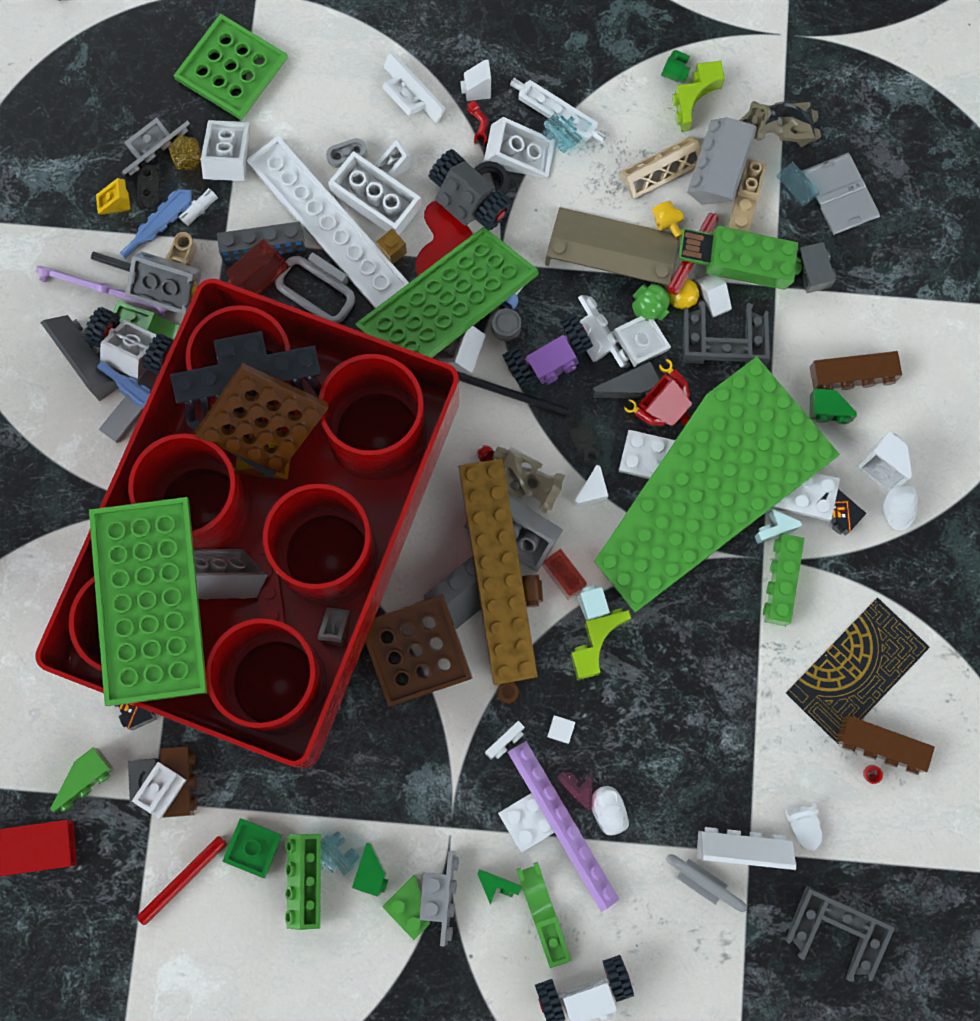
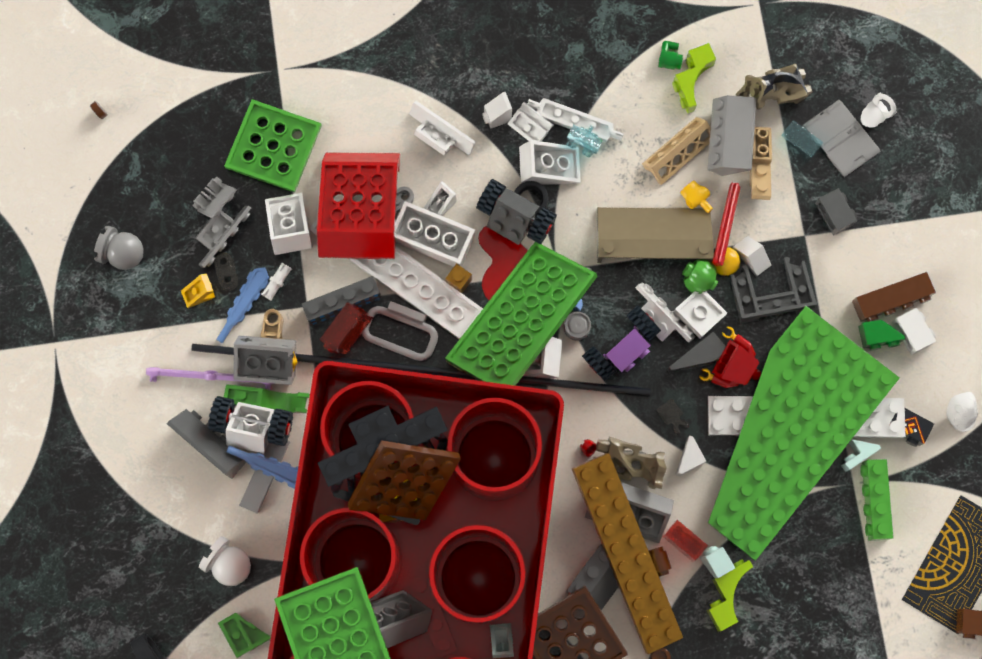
camera: 10 degrees left, 0 degrees up
(40, 134) = (120, 249): none -> light grey tile
(61, 560) = (242, 634): none -> bright green wing
(67, 483) = (228, 564): none -> white tile
(150, 114) = (218, 198): none -> light grey hinge
(185, 153) = (253, 235): clear yellow brick -> none
(297, 167) = (361, 227): none -> red slope
(474, 110) = (500, 136): red arm -> none
(508, 102) = (530, 123): none -> white plate
(742, 256) = (770, 217): bright green piece -> none
(870, 411) = (915, 330): none -> white brick
(885, 173) = (876, 112): none -> white piece
(888, 462) = (943, 375): white slope -> none

